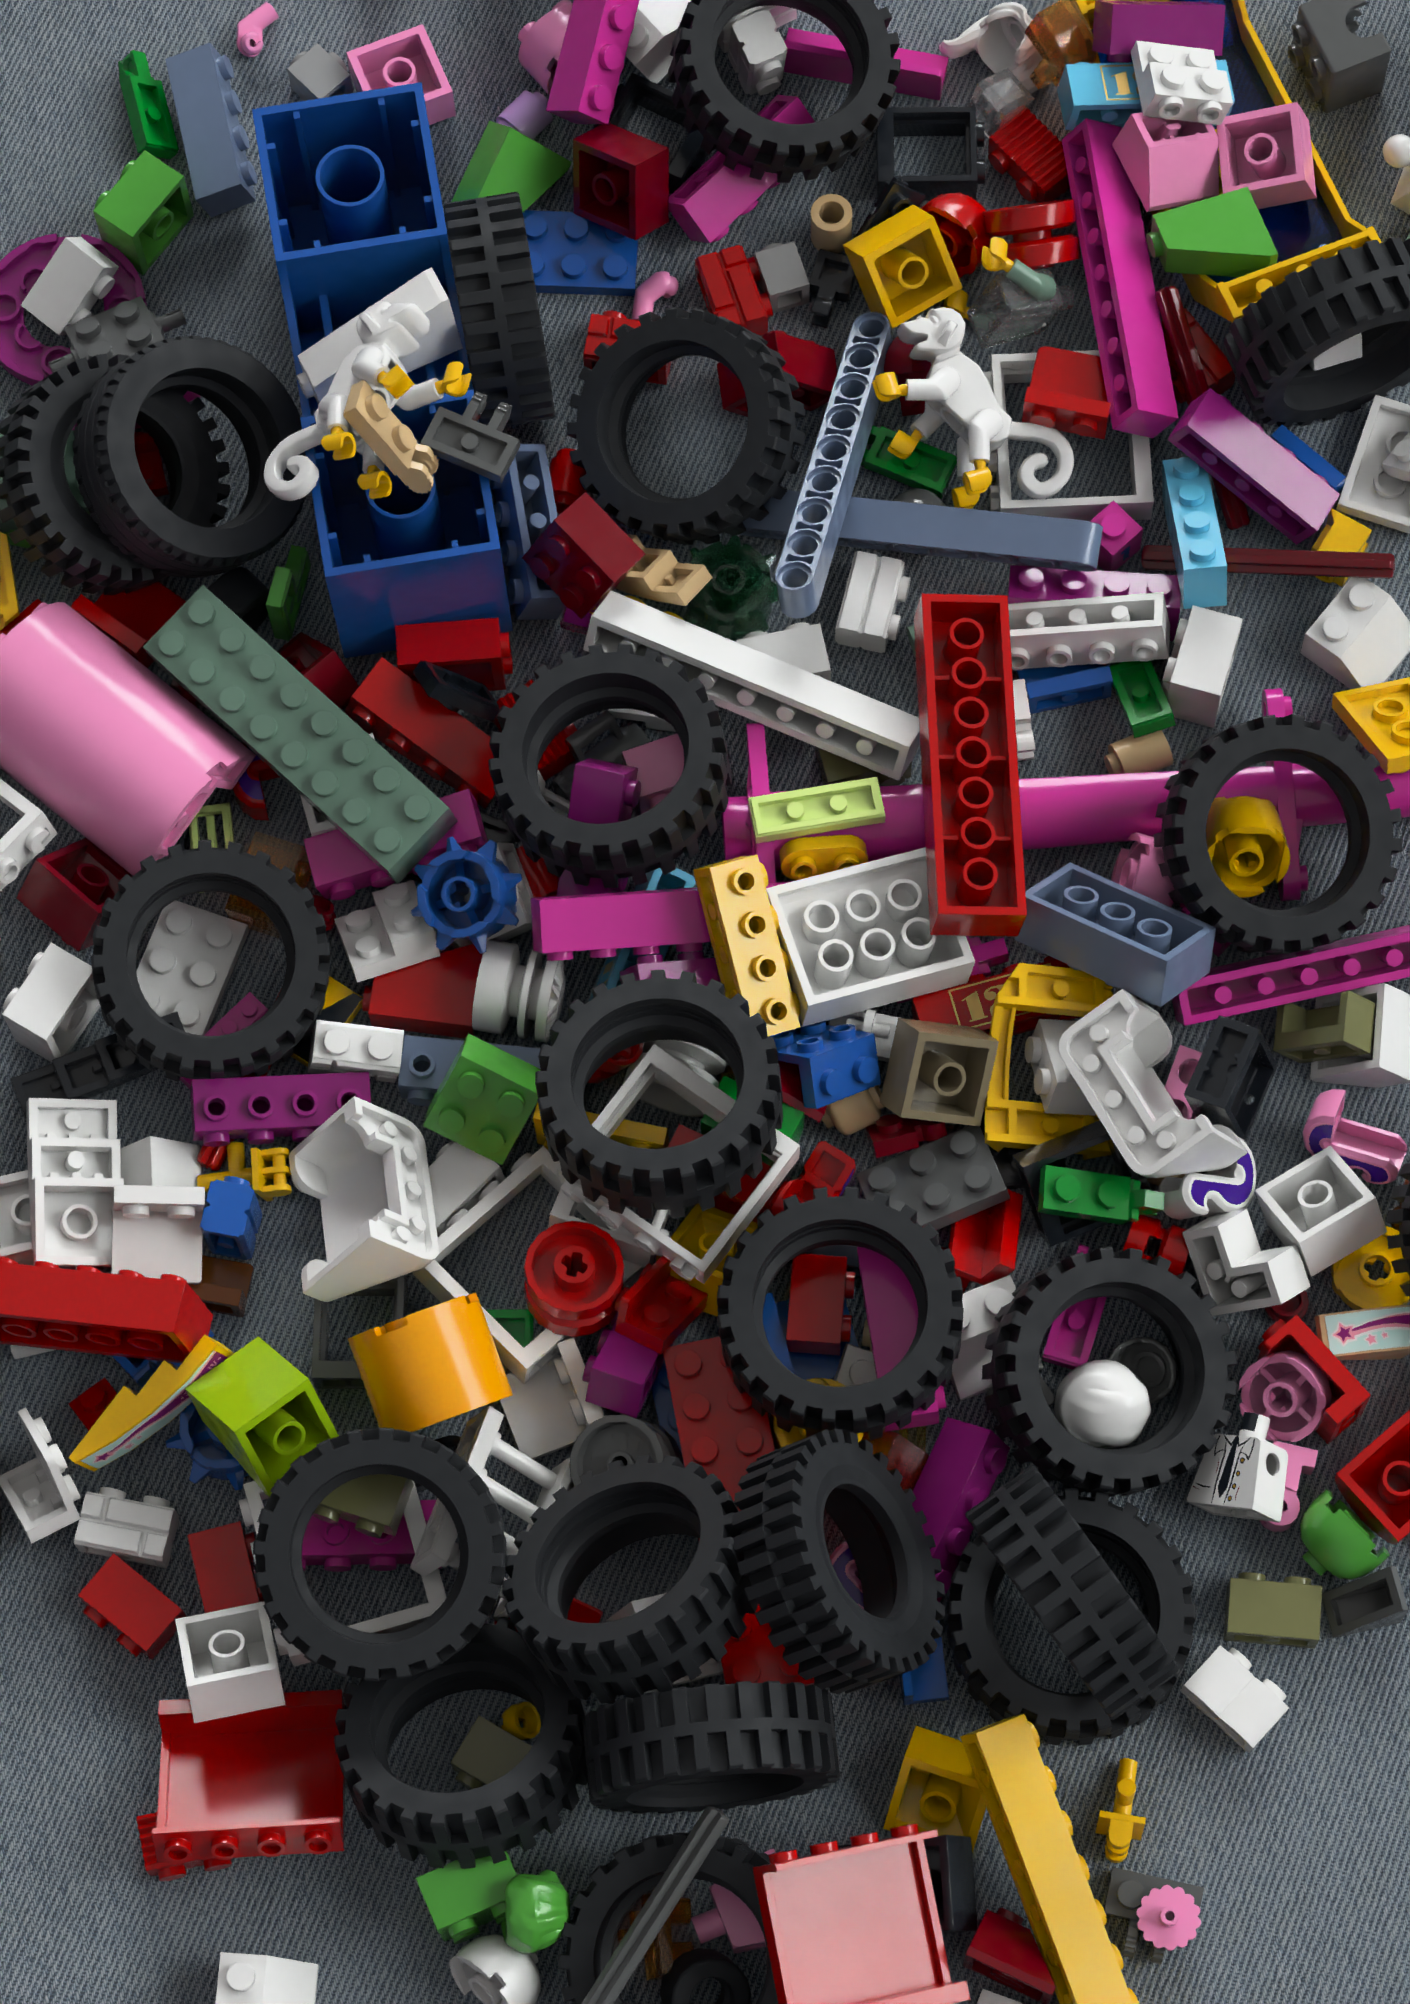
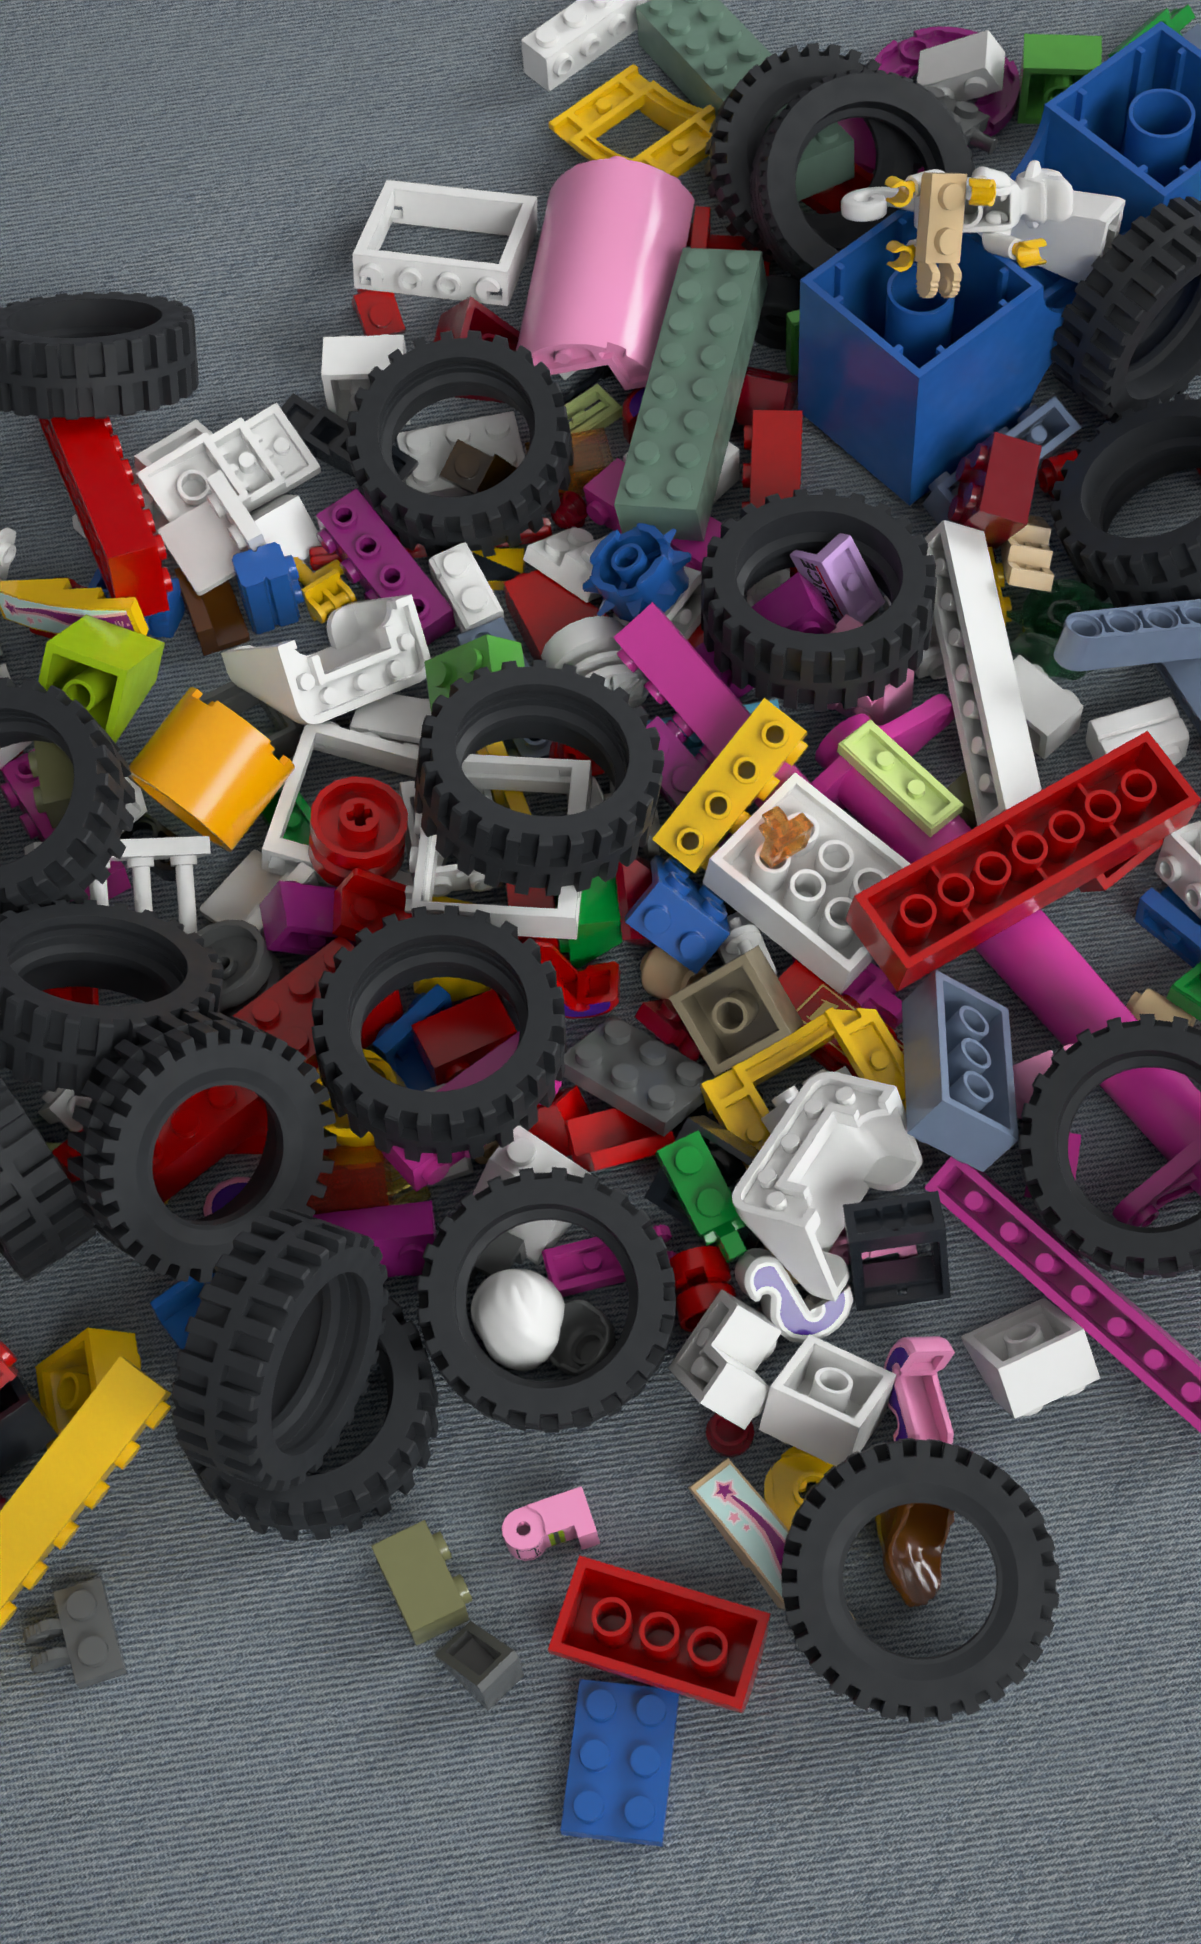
camera: 60 degrees right, 10 degrees down
(230, 965) = (474, 469): none -> dark brown slope
(456, 691) = (811, 466): black plate -> none
(463, 646) = (846, 460): red window -> none
(471, 443) = (998, 303): dark grey hinge -> none
(593, 734) = (841, 578): none -> lavender panel
(820, 855) = (869, 809): yellow plate -> none
(831, 934) = (783, 836): none -> clear orange tile
(1024, 733) = (1120, 910): white plate -> none
(1120, 1824) = (133, 1561): yellow arm -> none
(1168, 1917) = (72, 1648): bright pink piece -> none
(1235, 1698) = (319, 1595): white brick -> none
(1242, 1474) = (531, 1474): white torso -> none
(1246, 844) = (1127, 1135): yellow brick -> none
(1287, 1391) = (631, 1472): bright pink cylinder -> none
(1325, 1031) = (1004, 1311): olive panel -> none
(1338, 1540) = (525, 1600): bright green cylinder -> none
(1348, 1395) = (654, 1530): red panel -> none

